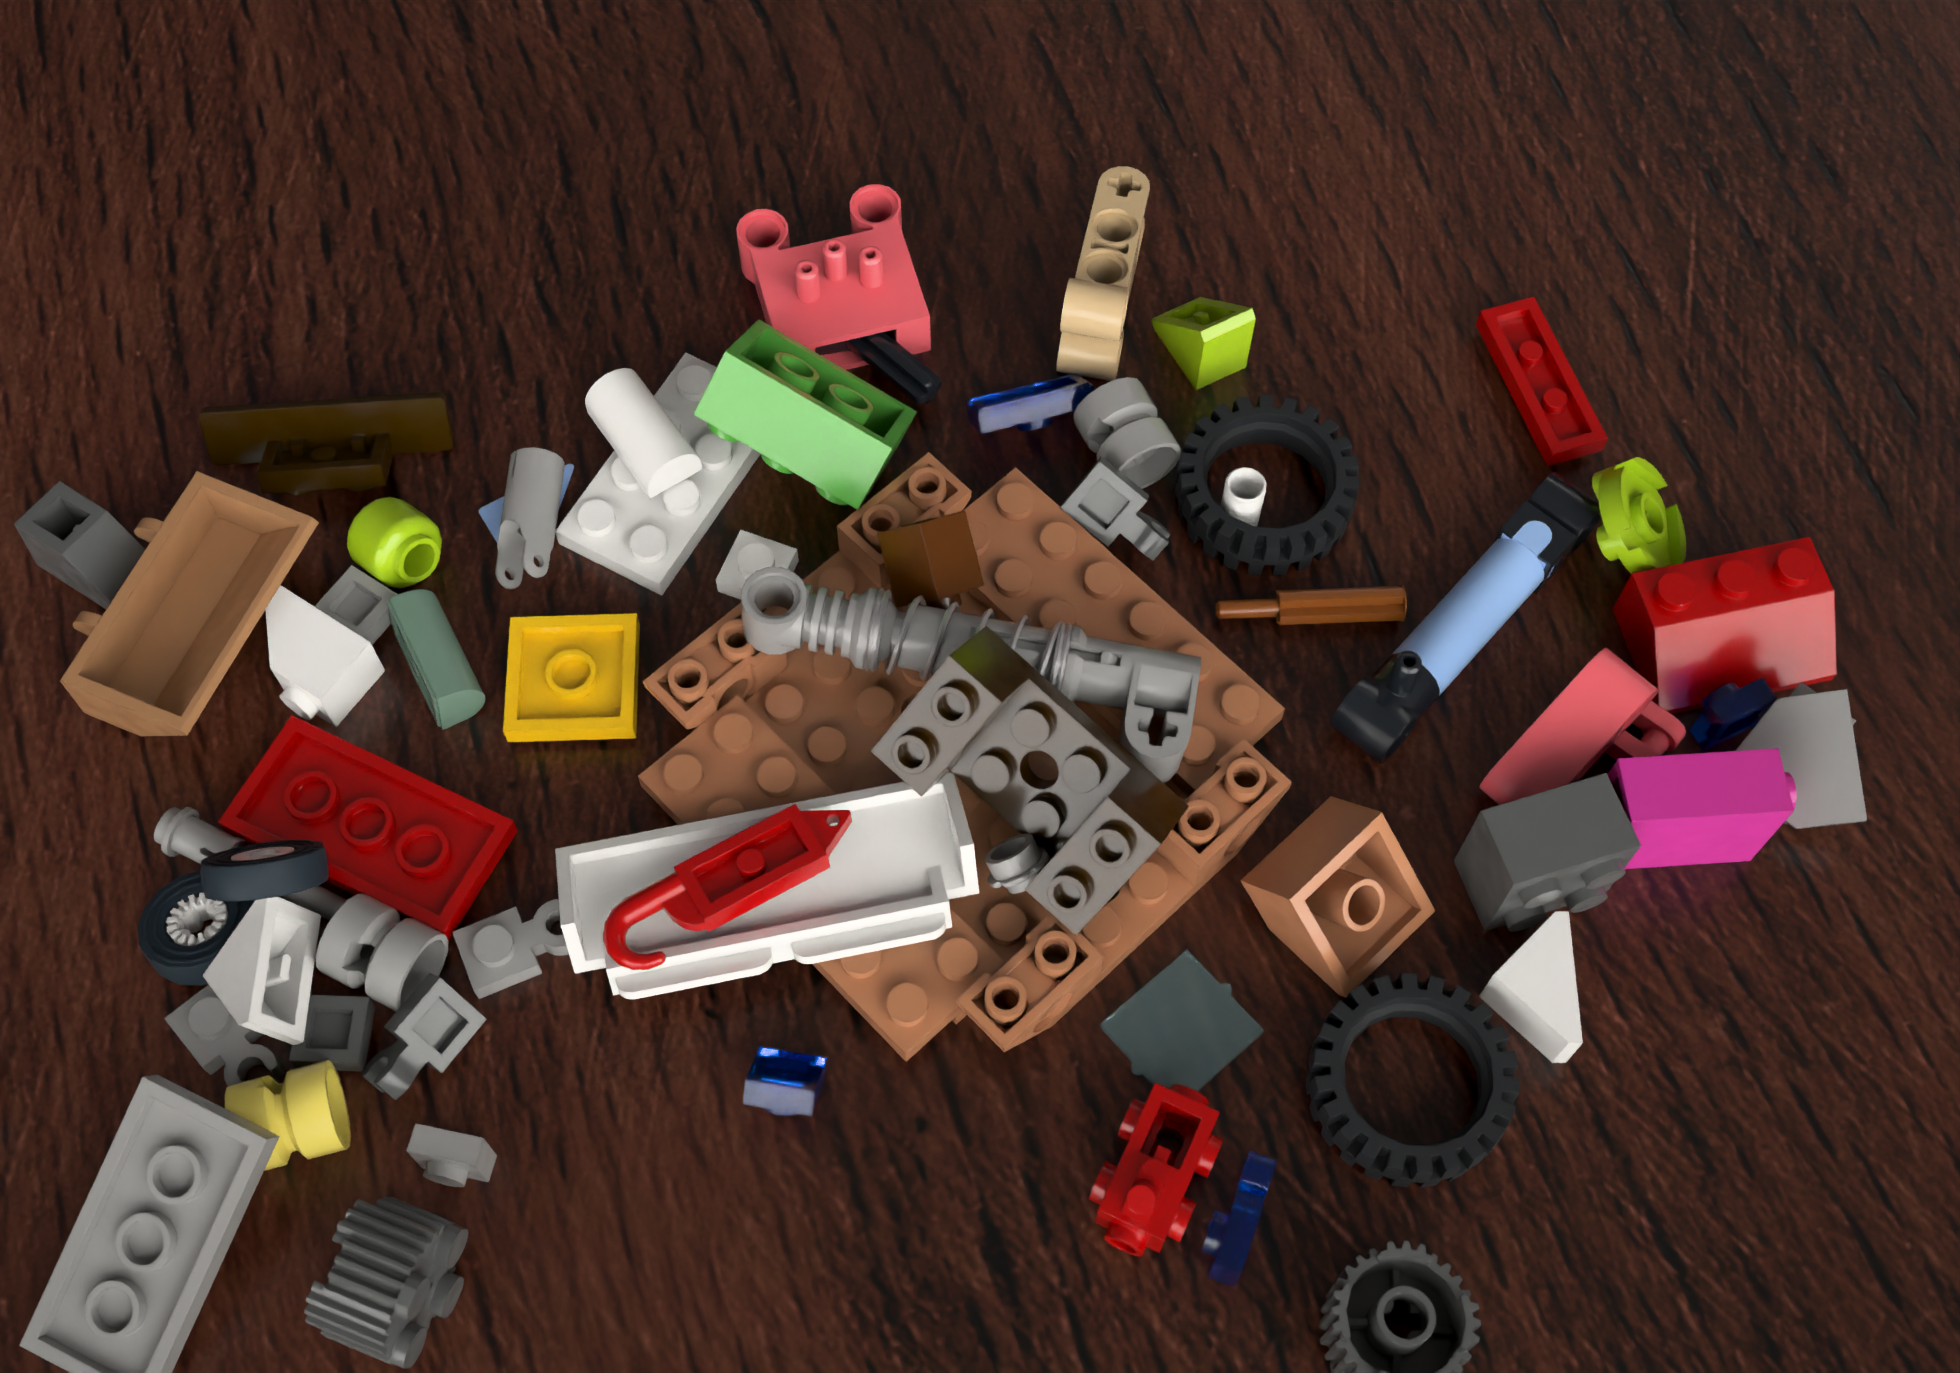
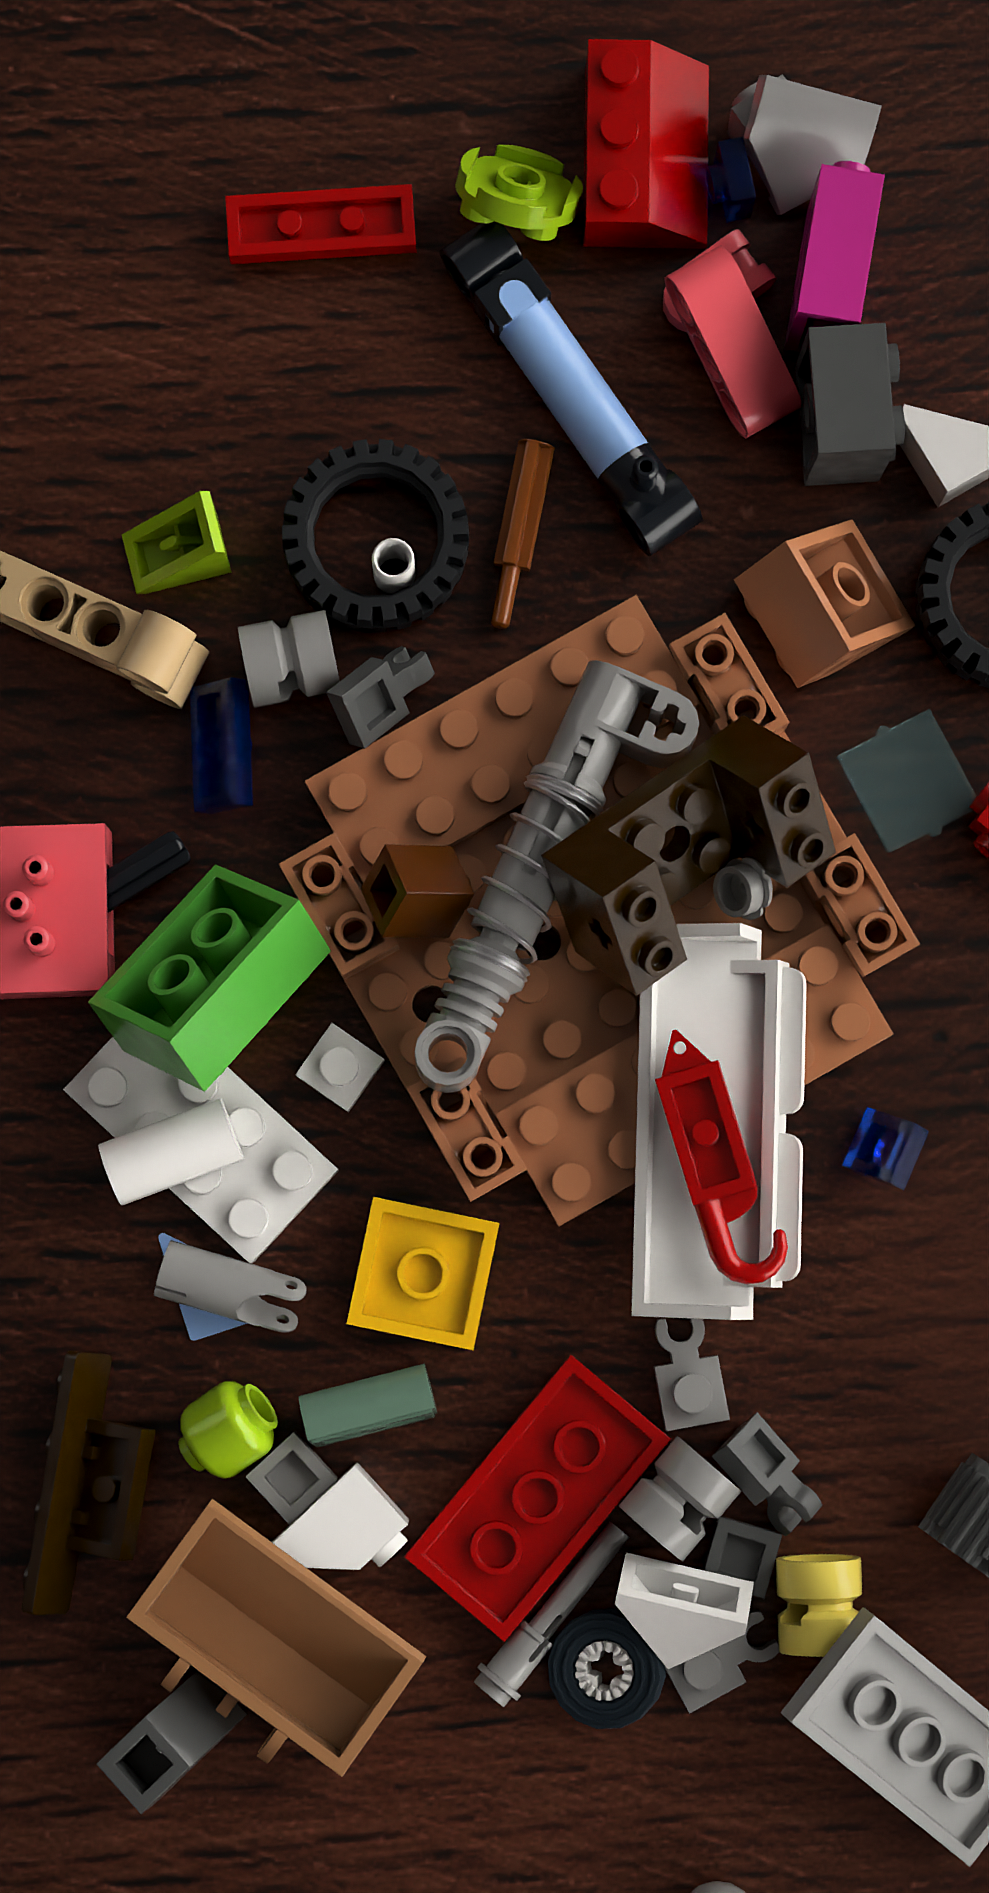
camera: 80 degrees left, 20 degrees up
(264, 870) = (590, 1595): black bush -> none
(451, 1155) = (887, 1462): light grey plate -> none

